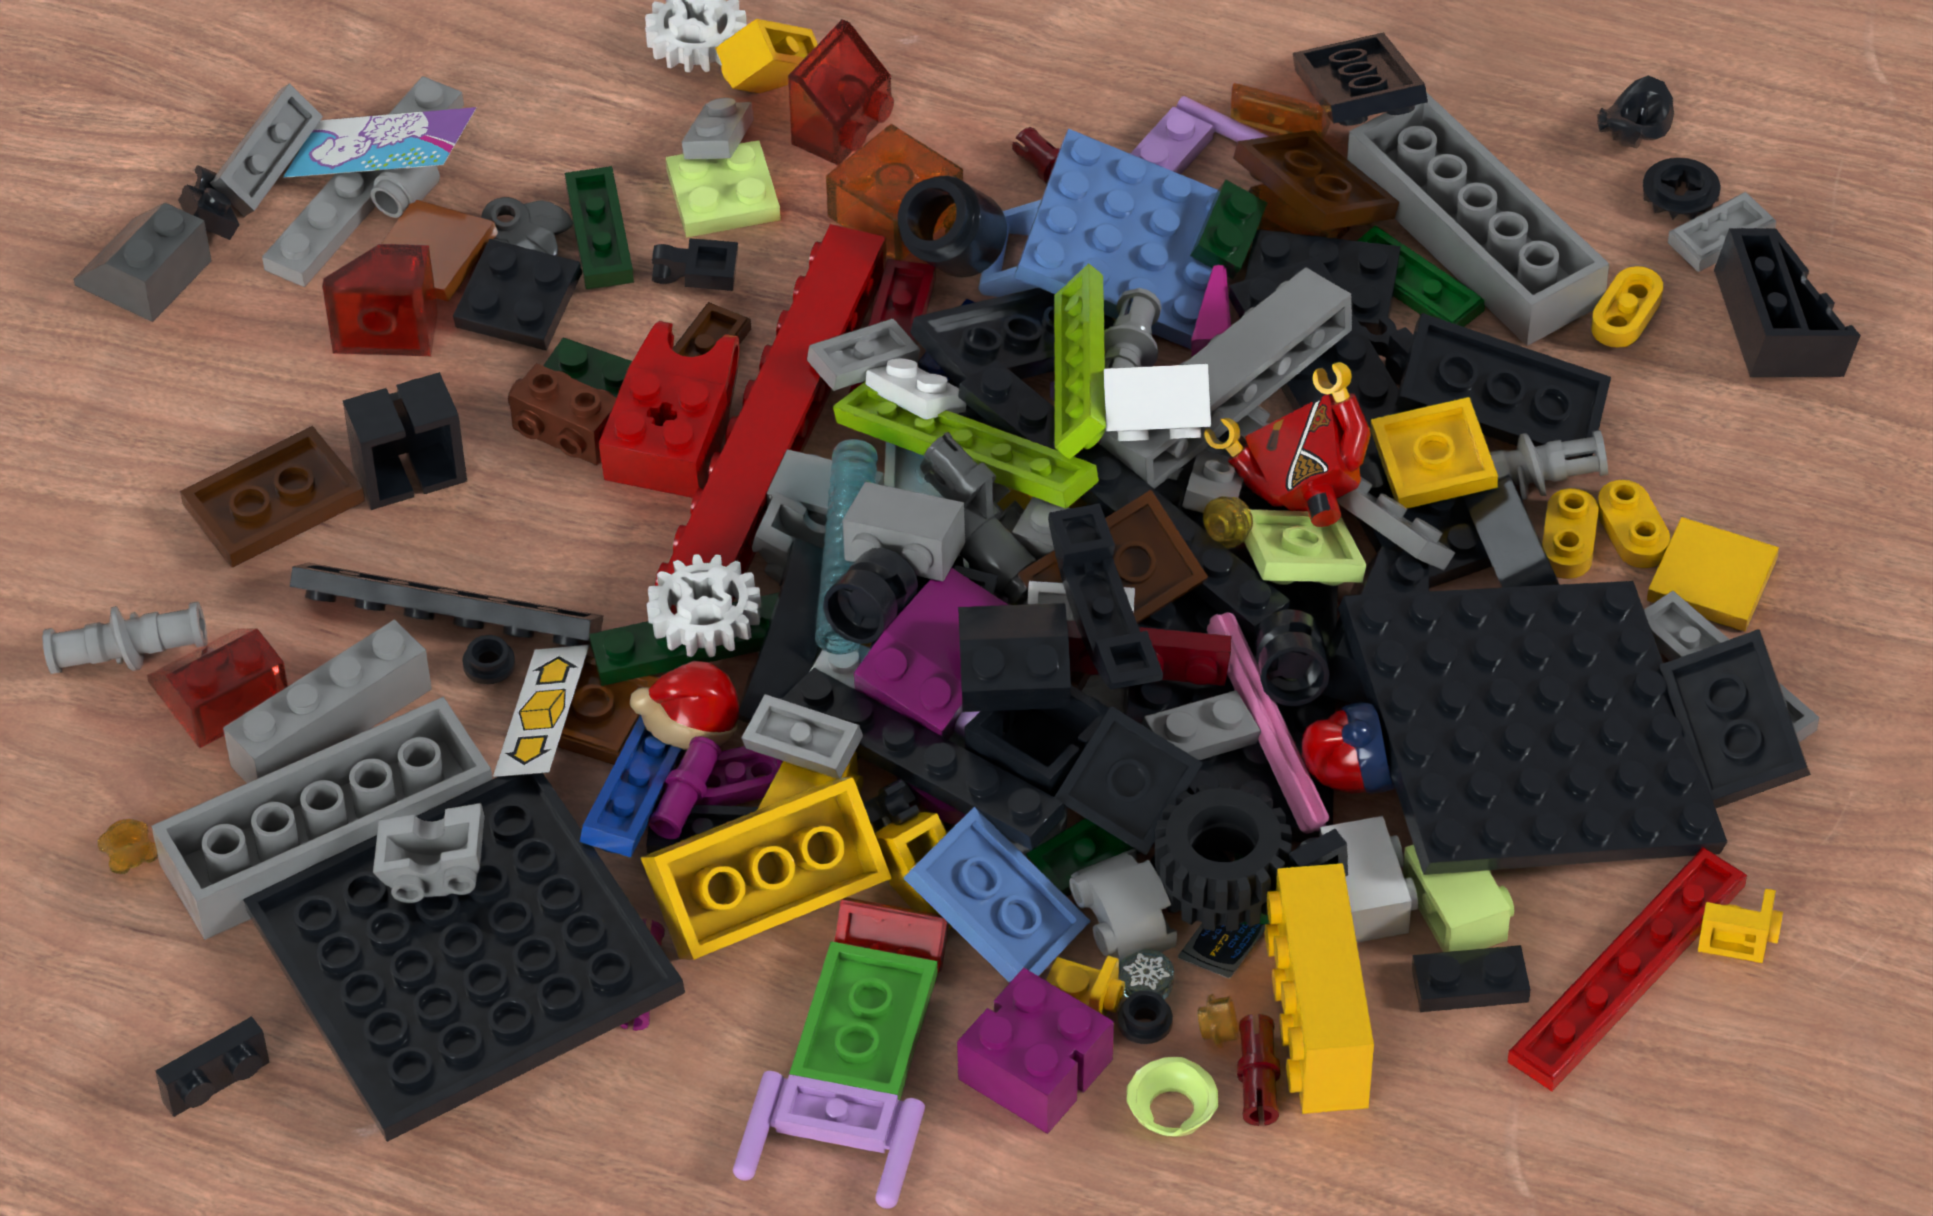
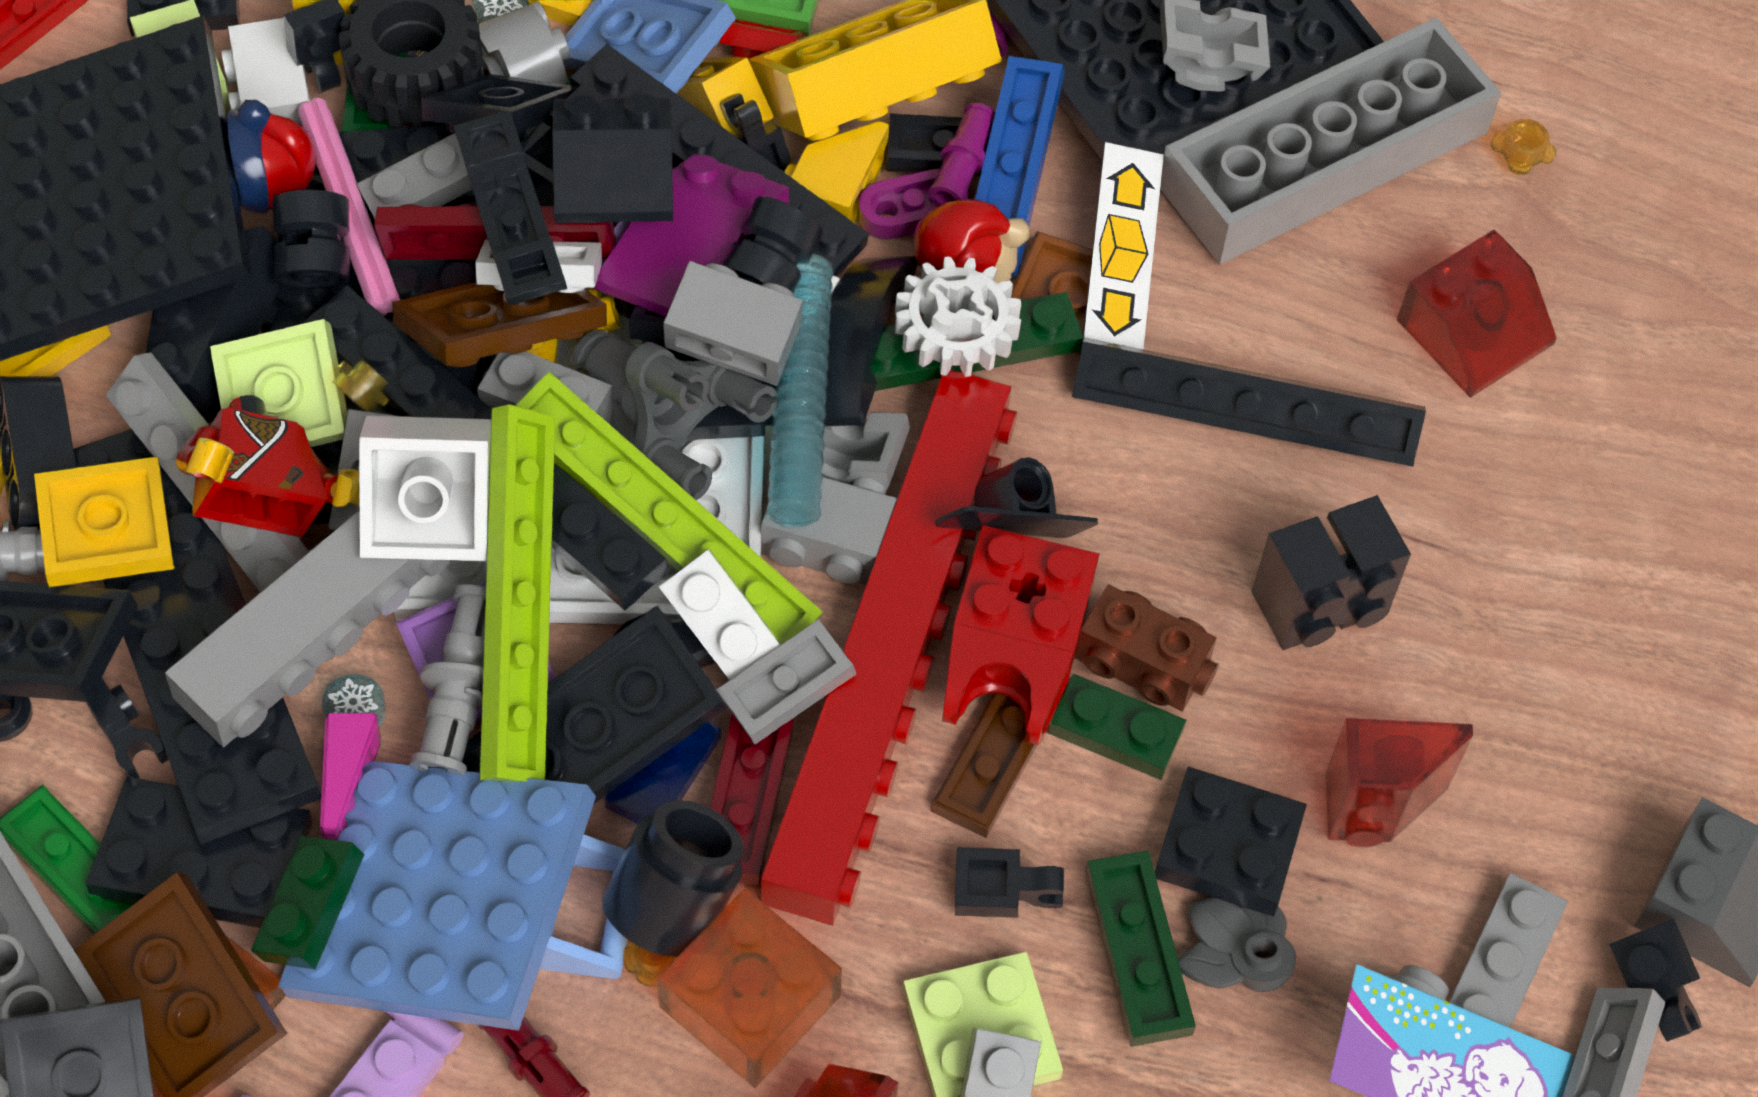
camera: 175 degrees right, 10 degrees up
(125, 638) = (1590, 352): light grey piece -> none
(272, 496) = (1479, 545): reddish brown plate -> none
(330, 703) = (1350, 270): light grey brick -> none
(453, 241) = (1352, 905): dark orange tile -> none
(488, 660) = (1195, 331): black plate -> none
(668, 477) = (1017, 501): none -> black piece
(802, 736) = (843, 170): light grey plate -> none

